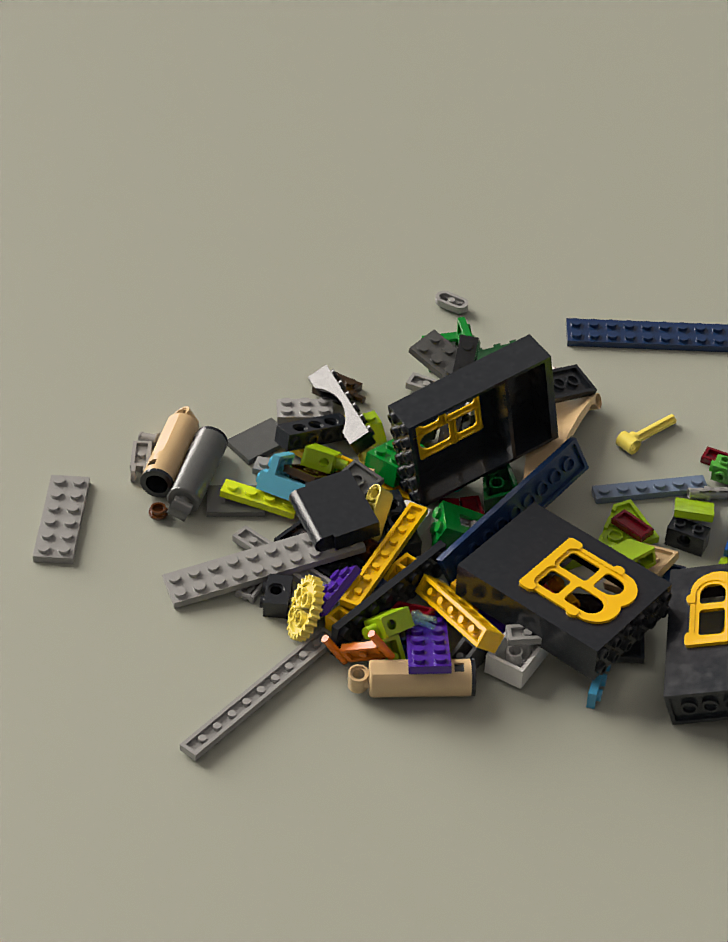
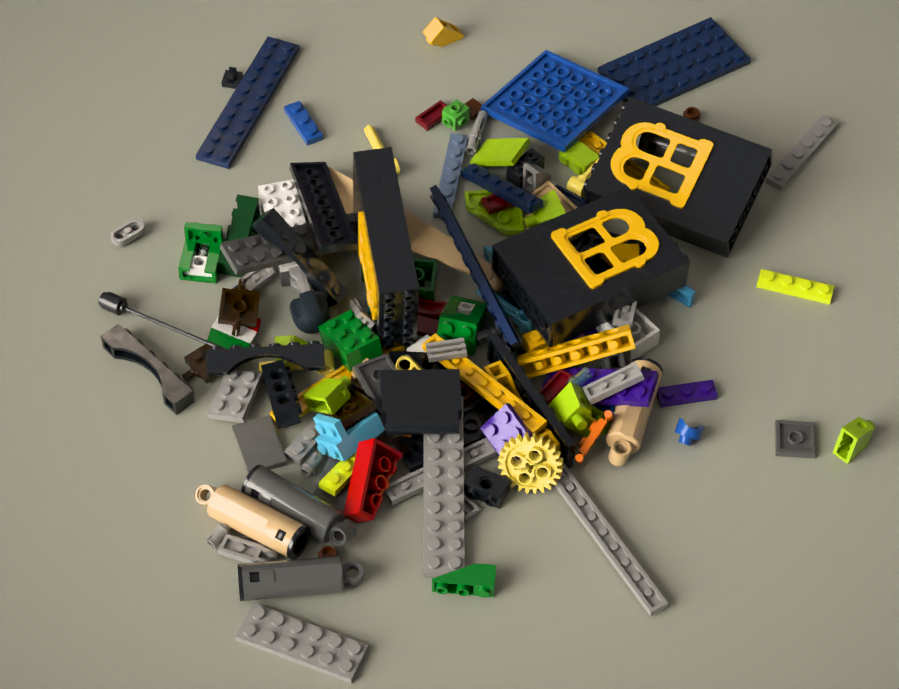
camera: 70 degrees left, 10 degrees up
(119, 491) = (296, 577): none -> dark grey piece
(167, 607) = (470, 580): none -> green slope
(248, 476) = (308, 468): none -> light grey pin
(251, 509) = (369, 479): none -> red wedge
(291, 371) = (124, 346): none -> arch
(371, 389) = (219, 333): none -> flag
(397, 383) = (239, 307): none -> dark brown plate
(411, 516) = (445, 347): none -> light grey tile
(412, 728) = (687, 433): none -> blue piece
(420, 637) = (613, 383): none -> light grey plate
(452, 825) = (795, 439): none -> dark grey tile
(468, 724) = (686, 393): none -> dark purple plate
(469, 868) = (857, 431): none -> lime torso
(642, 518) = (502, 188): none -> dark blue plate
(652, 376) = (303, 123): none -> blue plate
(662, 788) = (795, 286): none -> neon yellow plate
(675, 316) = (231, 78): none -> black tile
(679, 540) = (534, 177): none -> light grey slope

